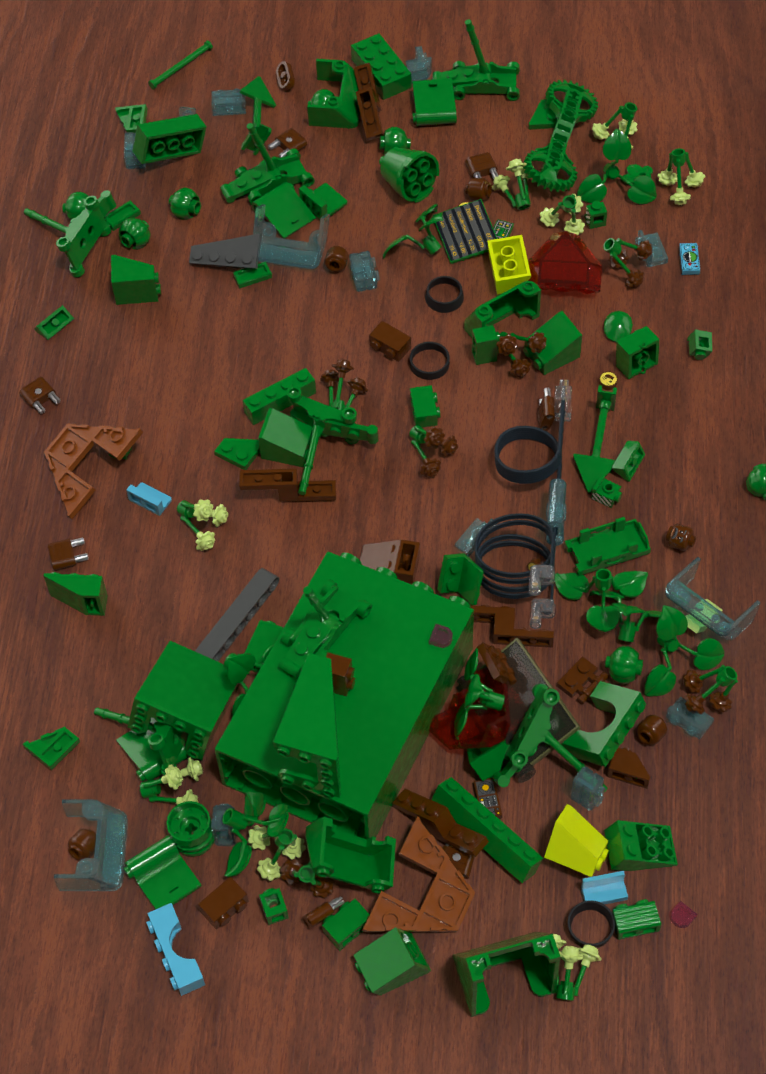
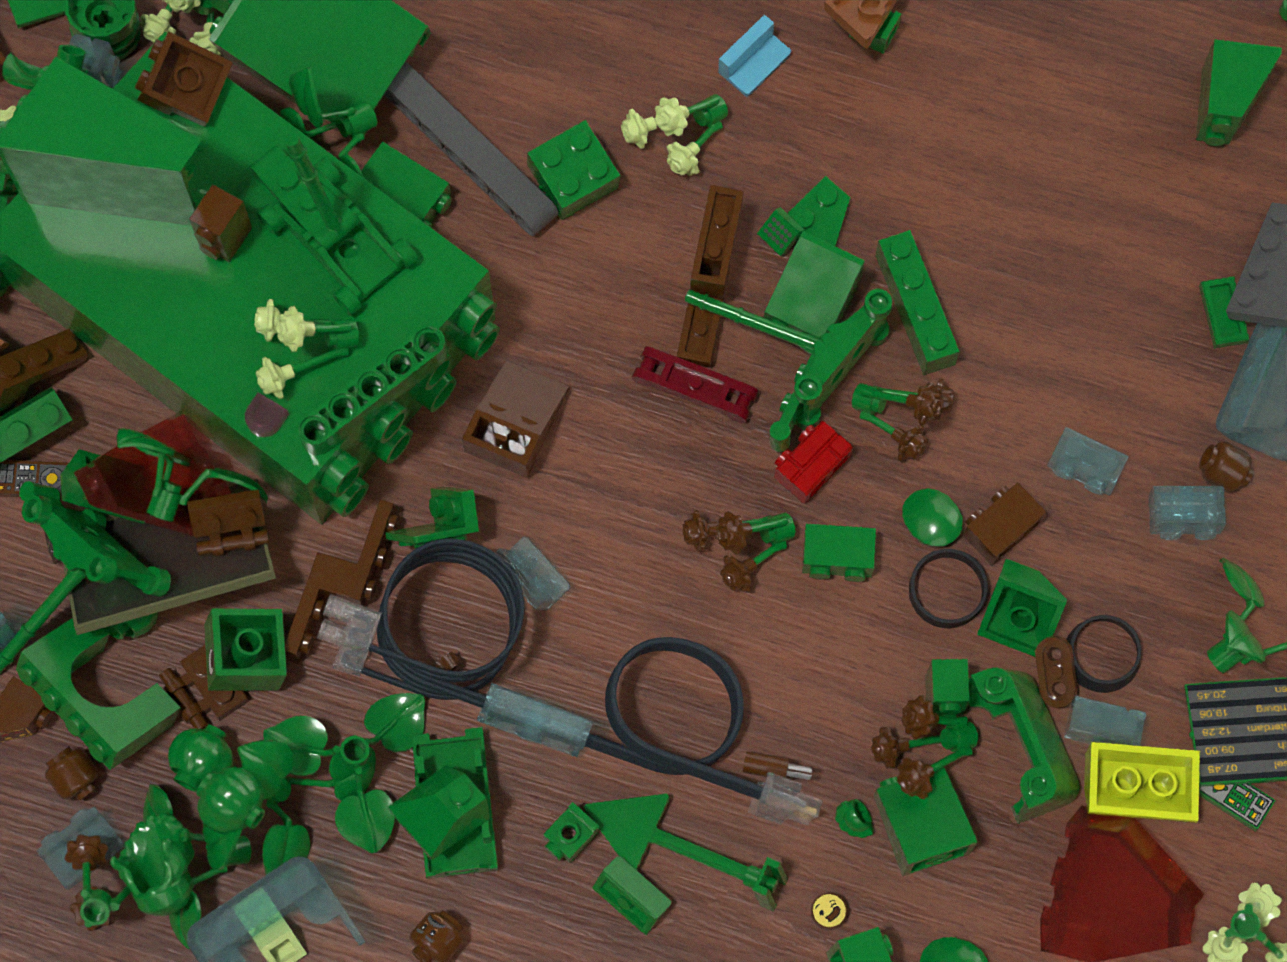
camera: 100 degrees right, 15 degrees up
(236, 564) = (573, 169): none -> green brick
(247, 723) = (183, 79): none -> reddish brown plate
(251, 462) = (780, 231): none -> green tile
(347, 315) = (1087, 462): none -> clear light blue bracket
(347, 487) = (695, 384): none -> dark red plate
(387, 426) = (812, 461): none -> red brick
(394, 373) = (932, 518): none -> green hat
(397, 613) = (291, 331): none -> yellowish green plant
(418, 591) = (378, 374): none -> green beam
(432, 325) = (1022, 608): none -> green slope
(459, 306) = (1056, 670): none -> reddish brown plate
(481, 284) = (1103, 723): none -> clear light blue brick
(559, 655) = (245, 649): none -> green brick
(560, 375) = (854, 818): none -> green piece
(617, 537) = (441, 810): none -> green slope
(651, 614) = (230, 800): none -> green plant
(691, 659) = (157, 865): none -> green hair

